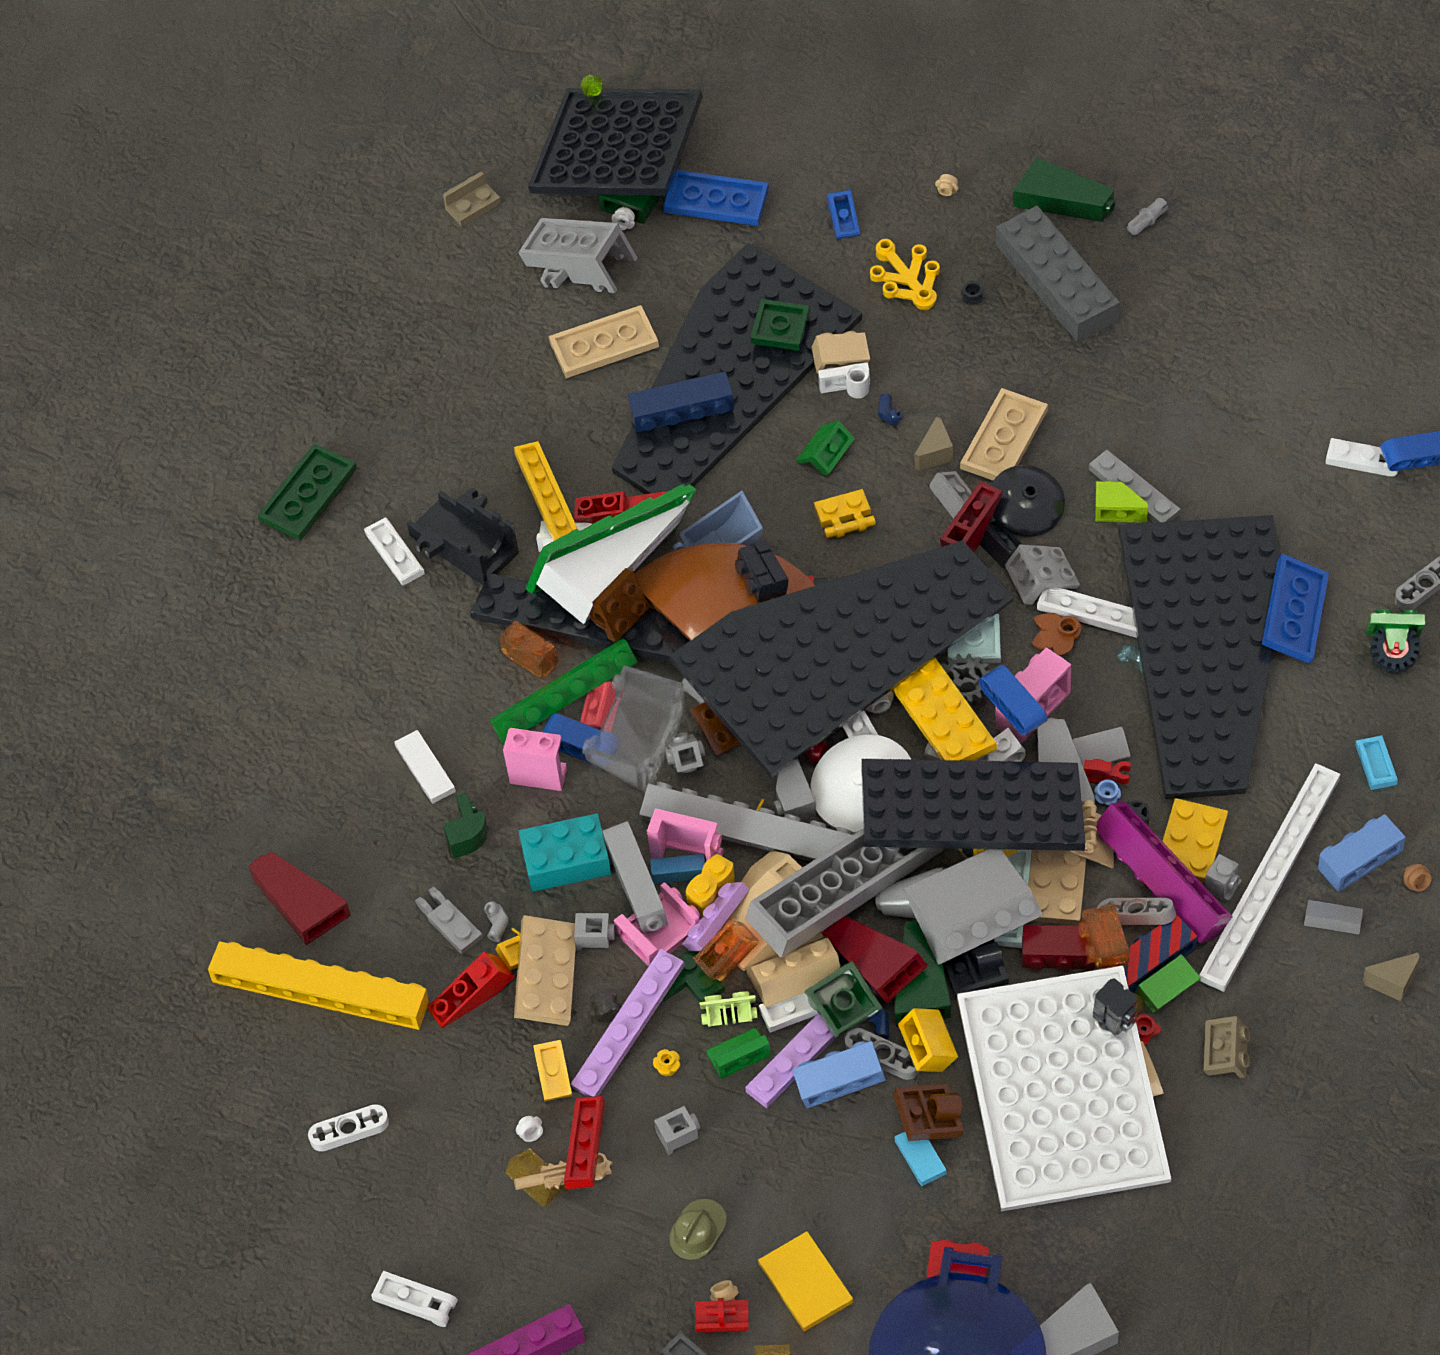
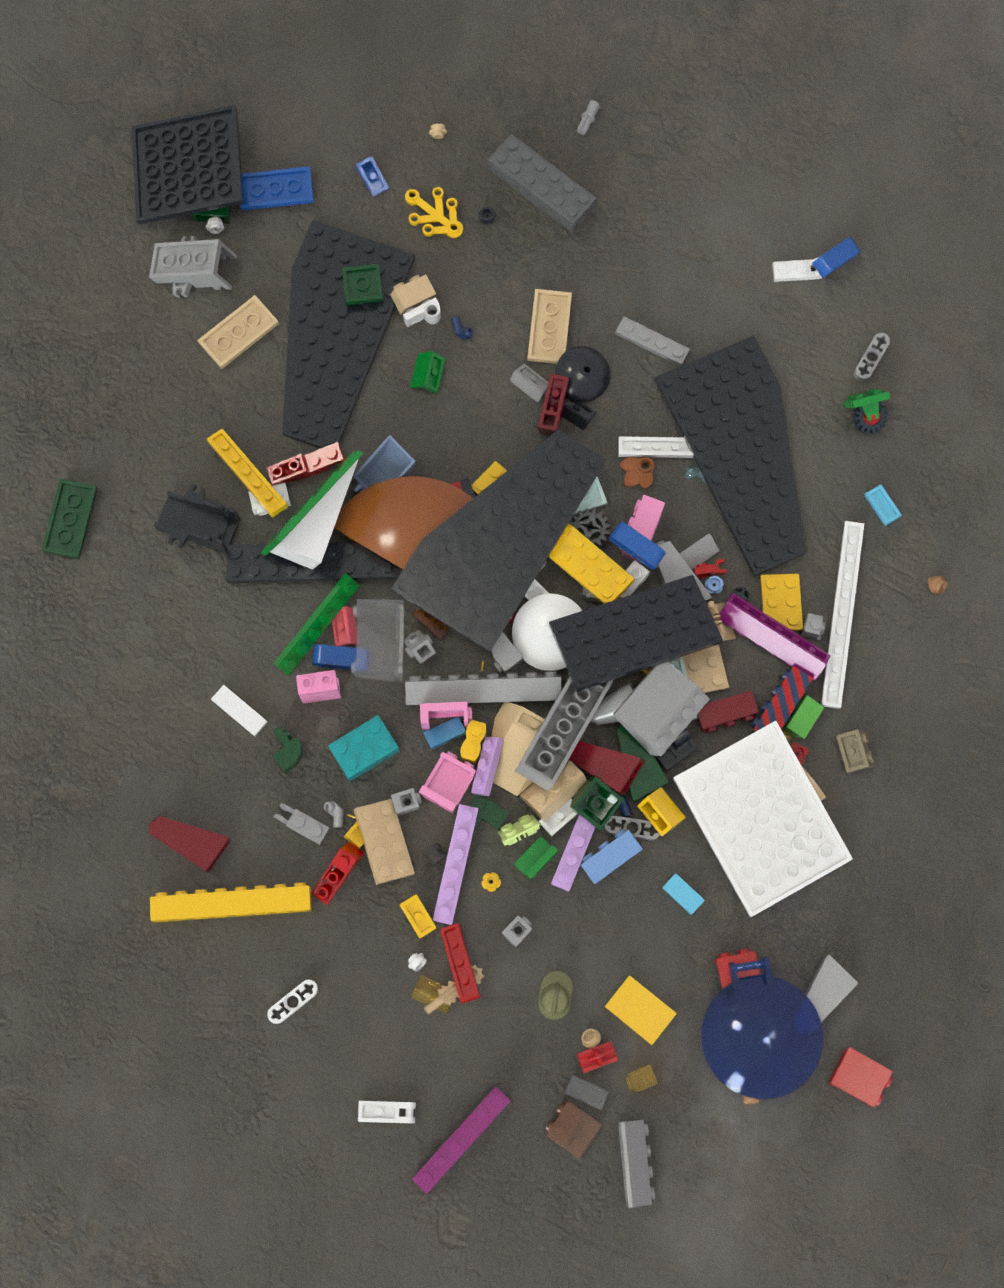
camera: 25 degrees left, 20 degrees up
(394, 551) = (151, 546): white tile -> none
(470, 199) = (95, 240): dark tan bracket -> none
(528, 649) = (279, 598): clear orange brick -> none
(591, 85) = (151, 121): clear neon green plate -> none
(619, 605) = (337, 553): reddish brown plate -> none
(635, 877) = (423, 757): light grey slope -> none
(681, 401) = (315, 369): dark blue brick -> none
(726, 950) = (504, 791): clear orange brick -> none
(761, 571) = (430, 500): black brick -> none
(842, 509) = (456, 417): yellow plate -> none
(929, 1112) = (680, 863): reddish brown plate -> none
(934, 448) = (506, 349): dark tan slope -> none
(1039, 567) = (611, 427): light grey bracket -> none
(1062, 192) = (522, 115): dark green slope -> none
(1104, 937) = (755, 701): clear orange brick -> none
(1115, 1007) = (785, 758): black brick -> none
(1118, 503) = (646, 357): lime slope -> none
(1155, 910) = (773, 675): light grey beam -> none
(1295, 608) = (794, 405): blue plate -> none
(1333, 917) = (892, 630): light grey slope -> none
(1361, 852) = (896, 577): medium blue brick -> none
(1392, 976) = (948, 664): dark tan slope -> none

